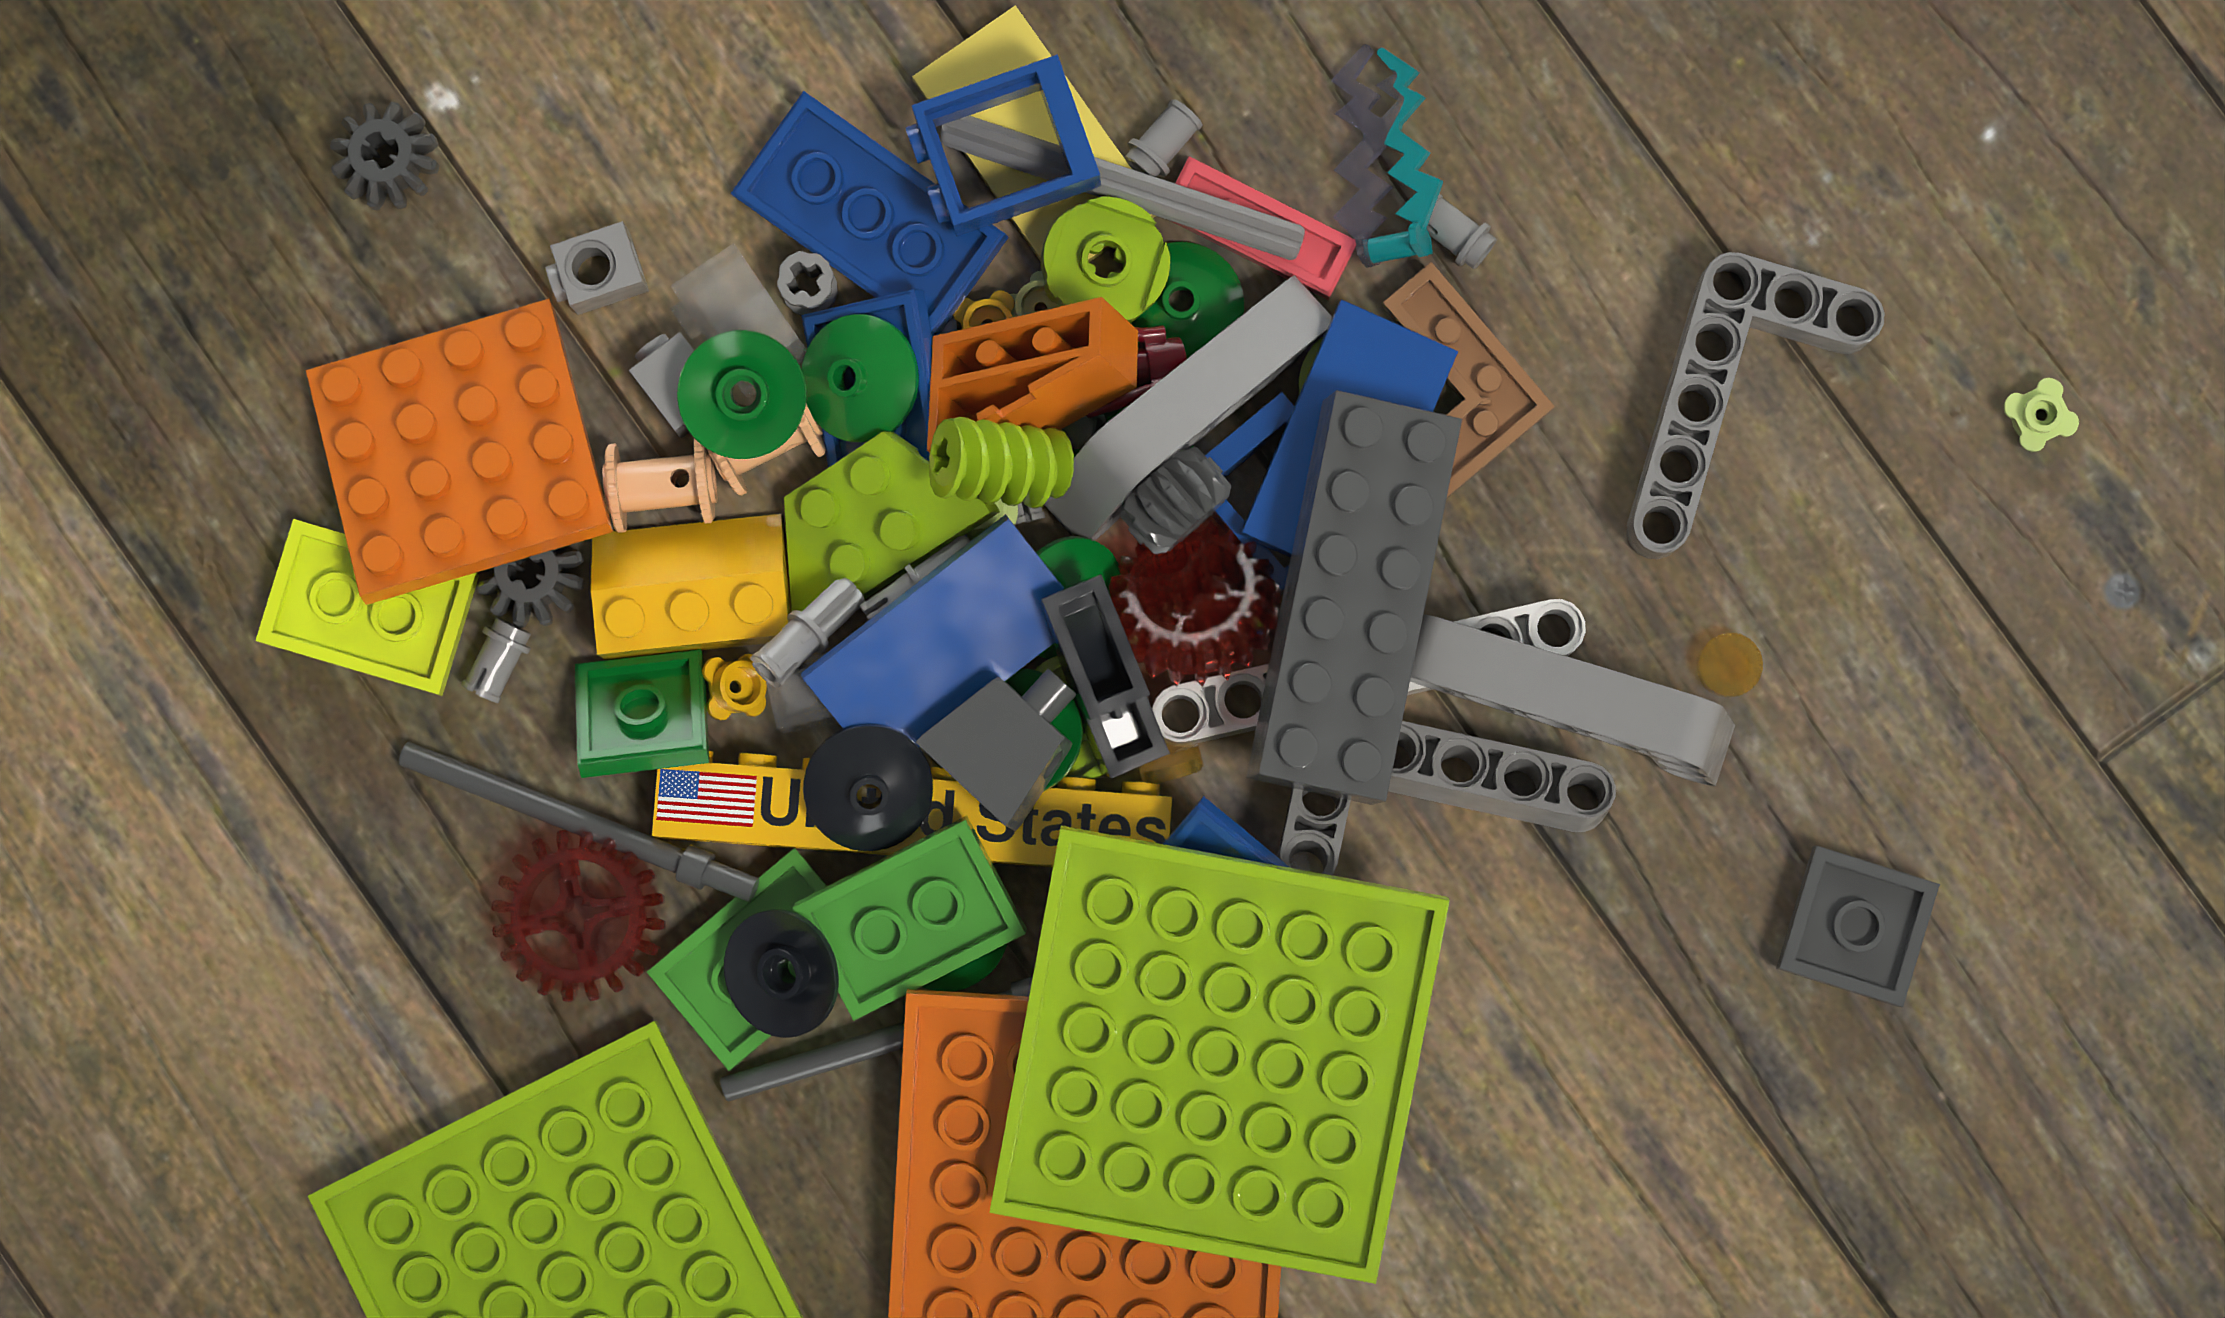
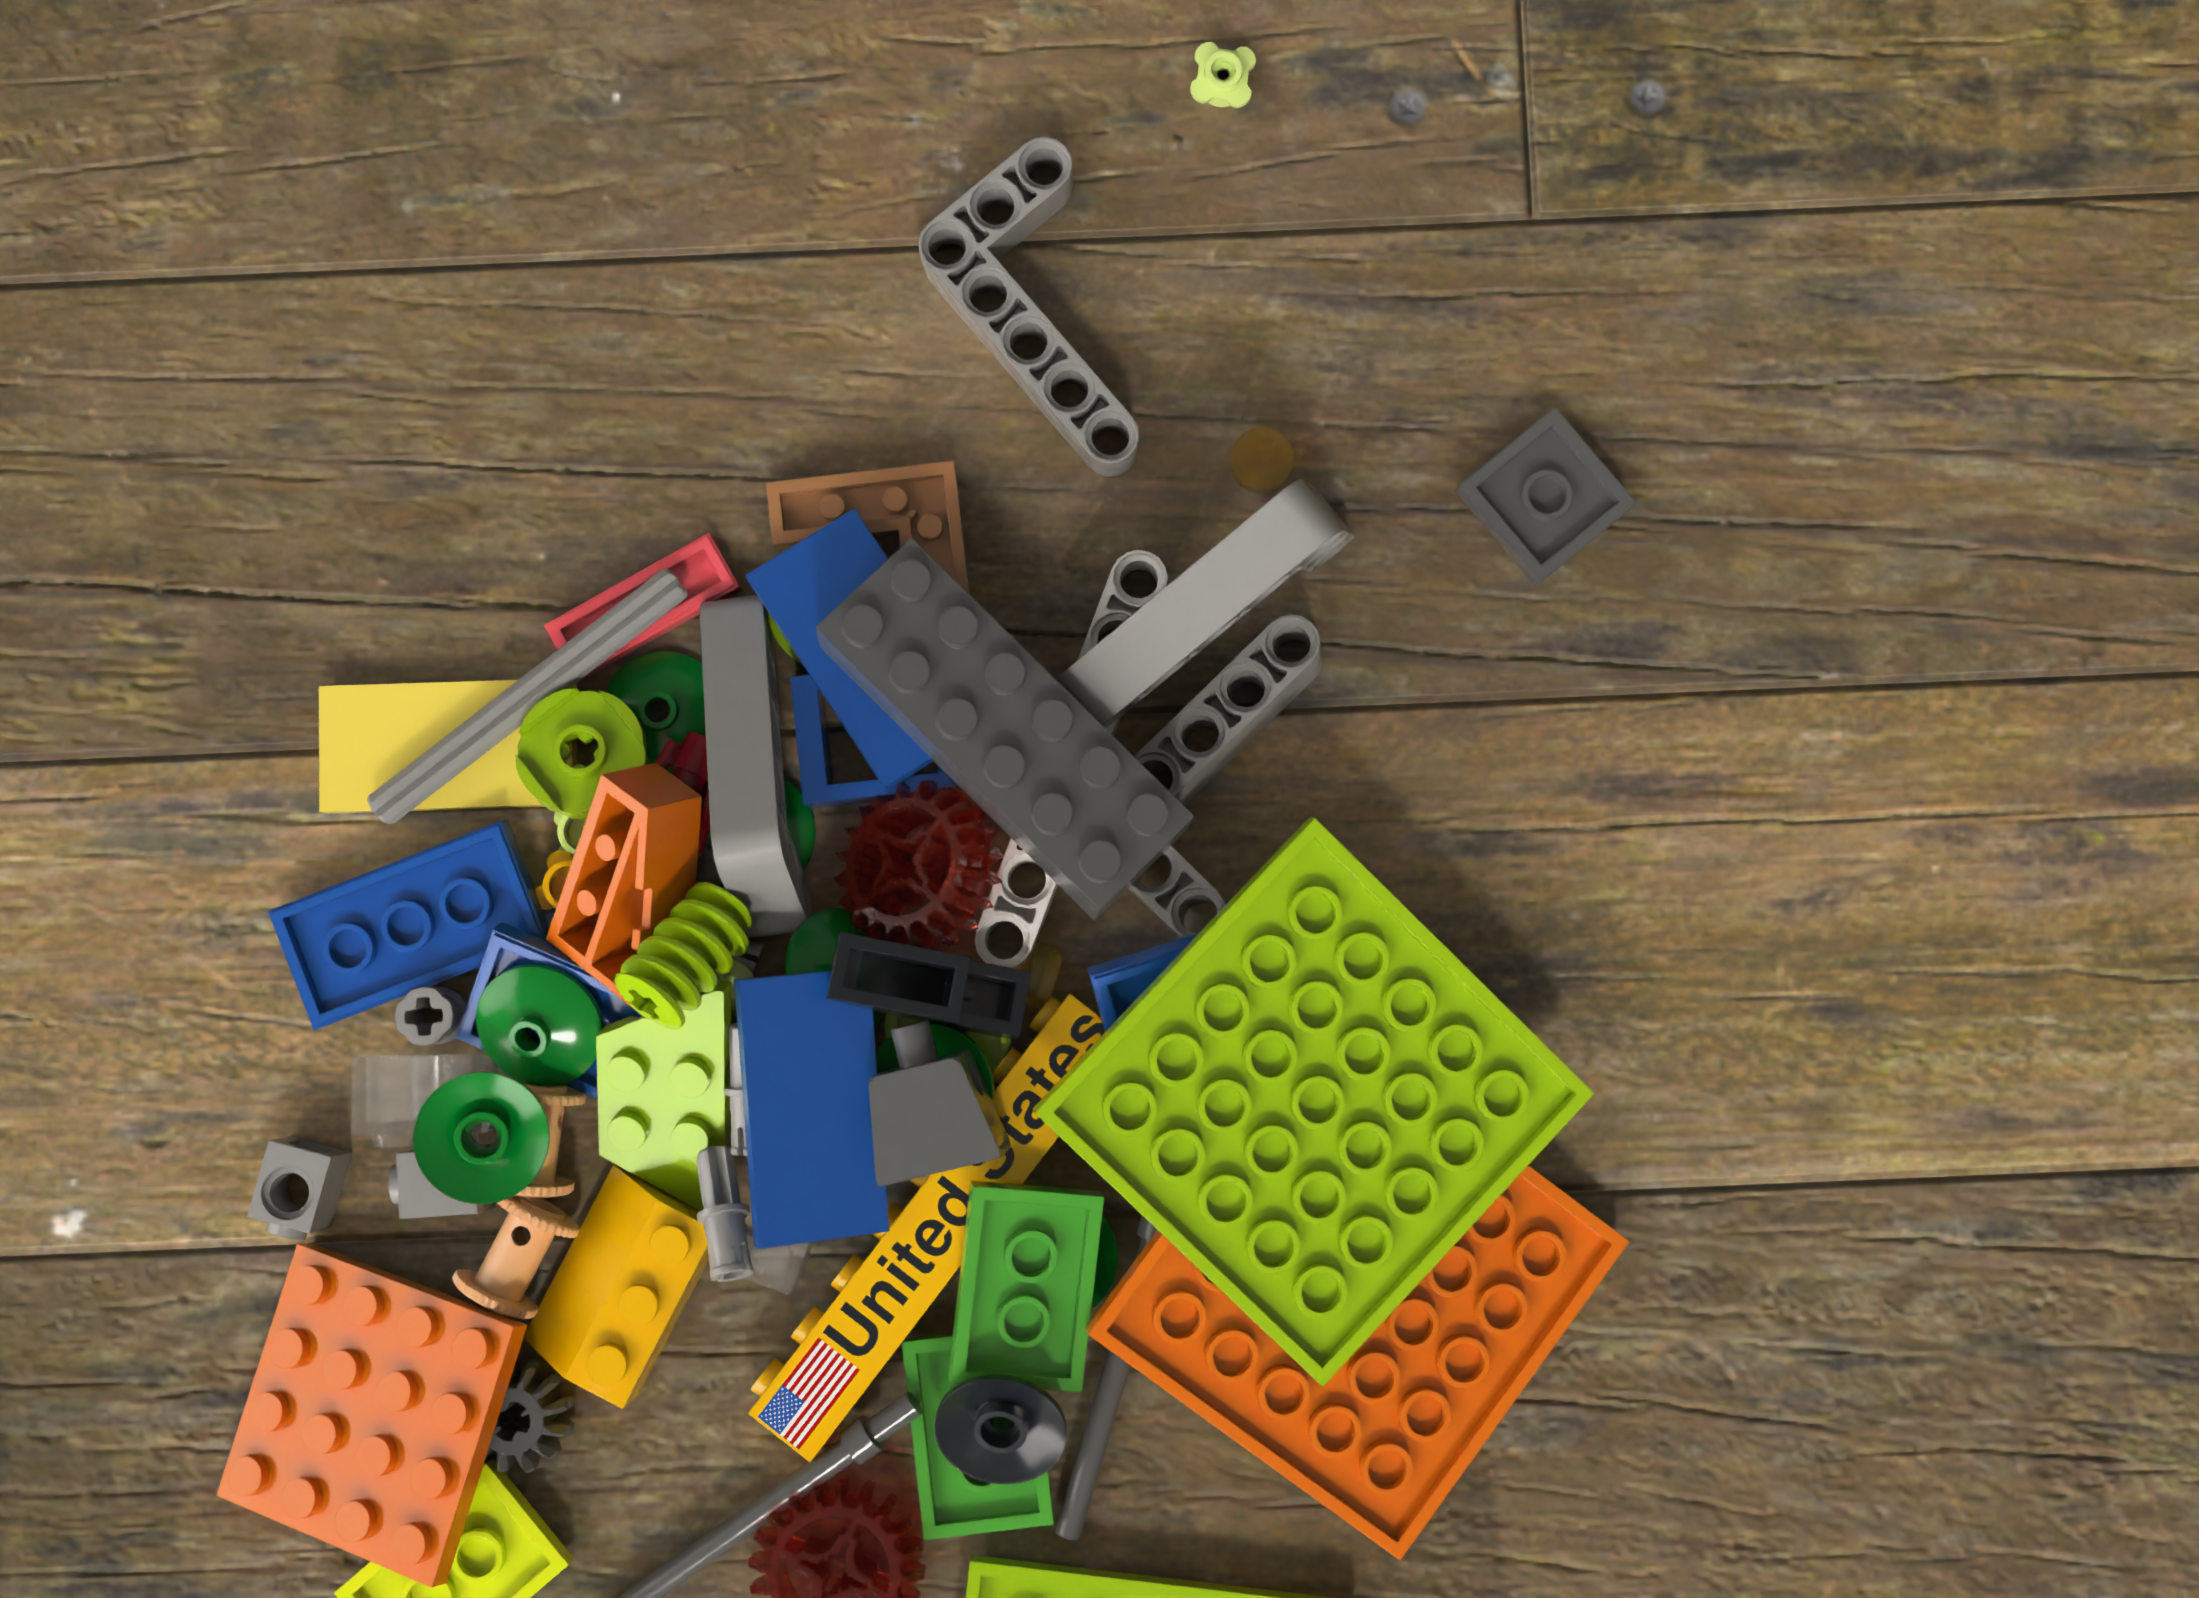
camera: 55 degrees left, 0 degrees up
(403, 138) = (55, 1310): dark grey gear -> none
(496, 659) = (573, 1492): light grey pin -> none
(641, 713) = (700, 1400): green tile -> none
(723, 702) = (736, 1320): yellow plate -> none
(863, 757) = (869, 1228): black dish -> none
(1040, 76) = (368, 760): blue window -> none
(1162, 140) = (515, 637): light grey pin -> none
(1175, 500) = (819, 826): dark grey gear -> none
(1377, 135) = (632, 455): piece -> none
(1460, 234) = (754, 447): light grey pin -> none

